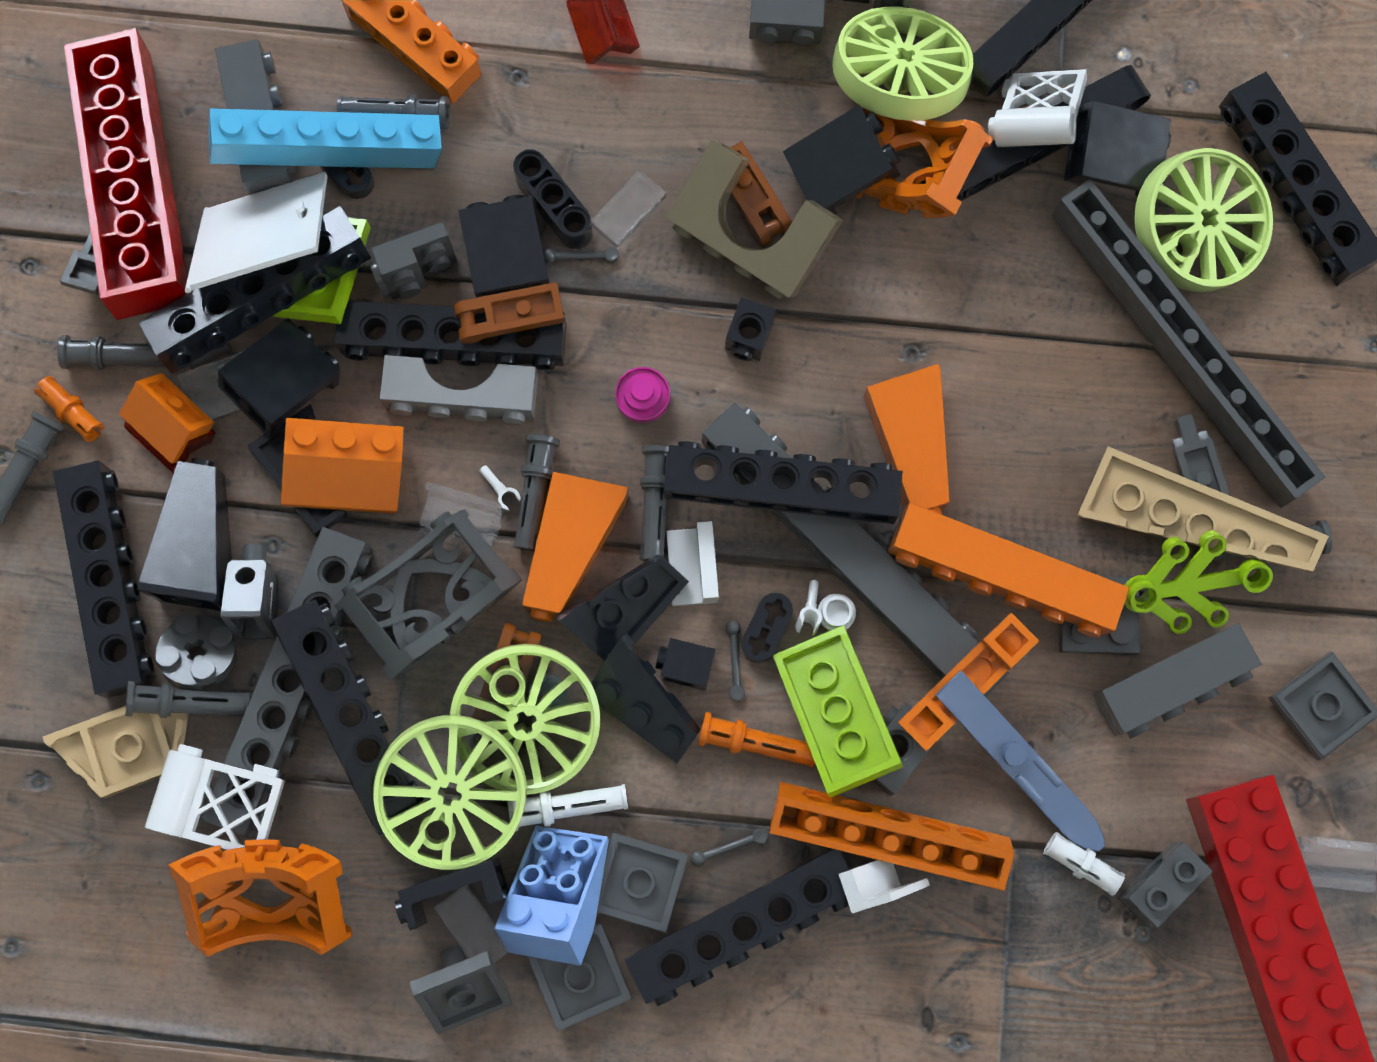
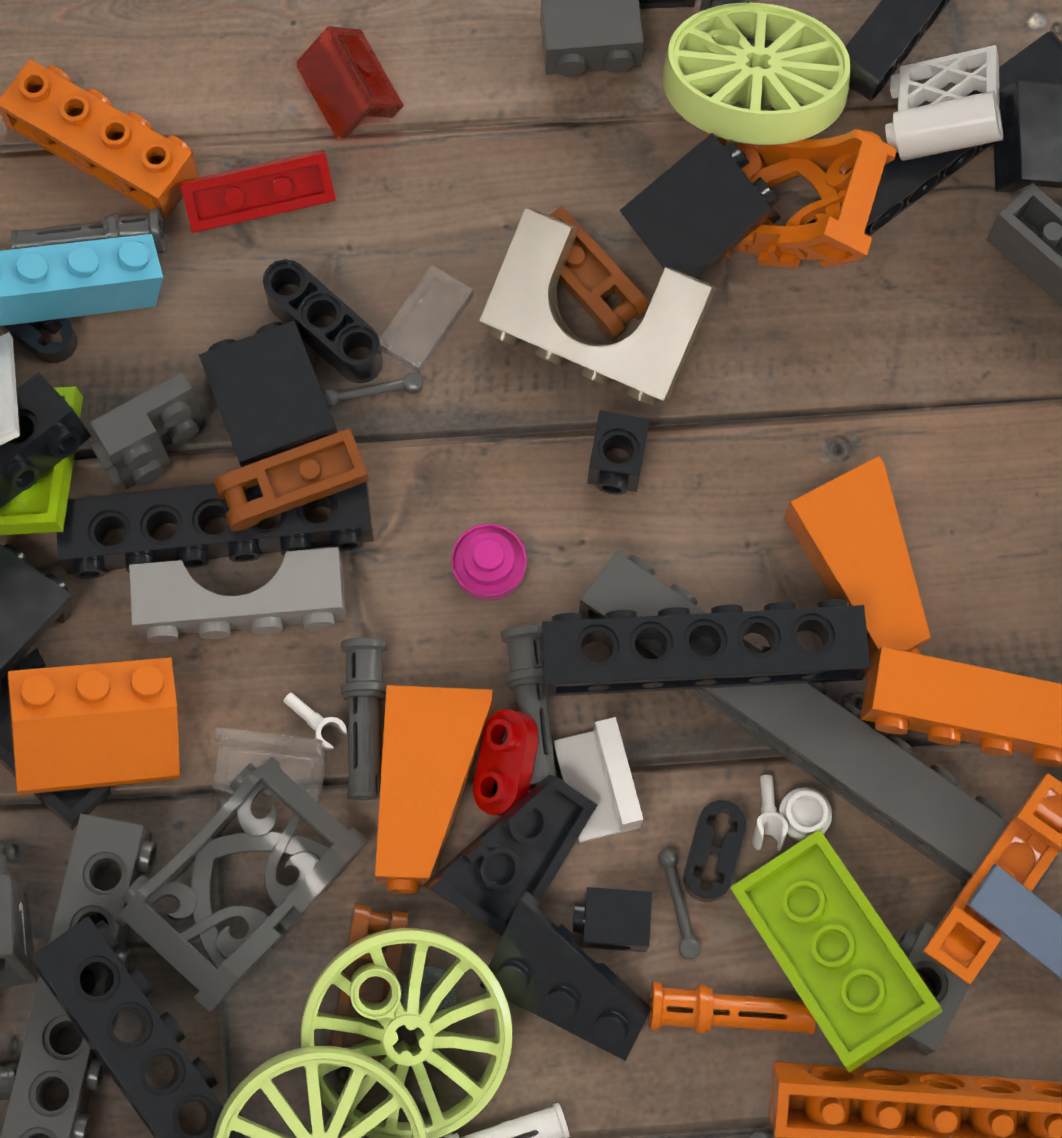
camera: 10 degrees left, 5 degrees down
(521, 94) = (257, 191): none -> red plate
(629, 540) = (505, 762): none -> red plate

